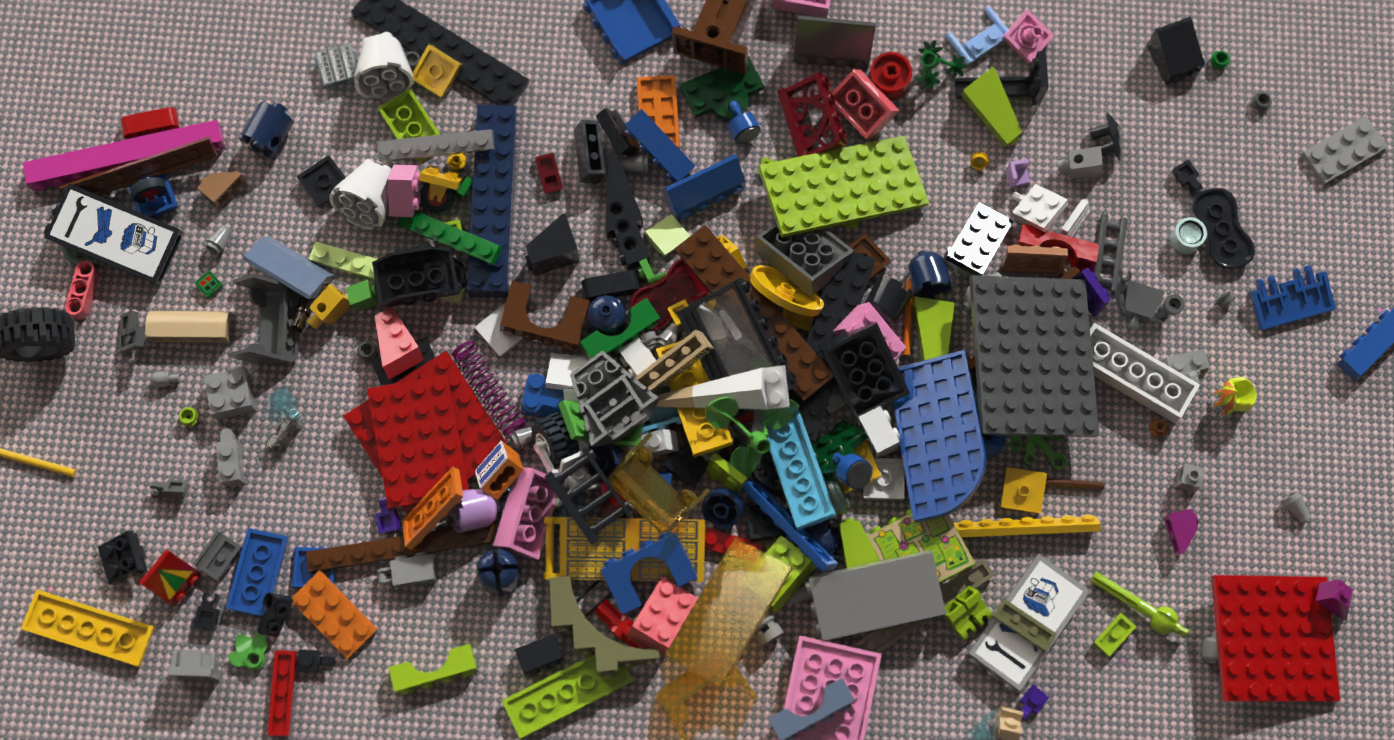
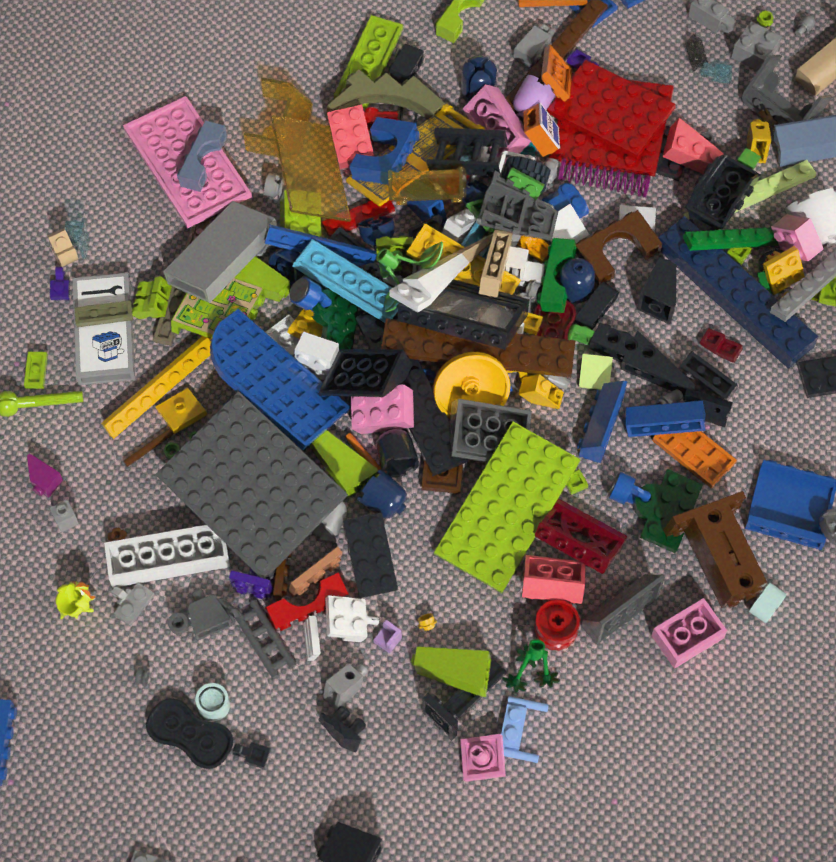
camera: 140 degrees right, 10 degrees down
(1295, 299) = (88, 720): blue hinge -> none

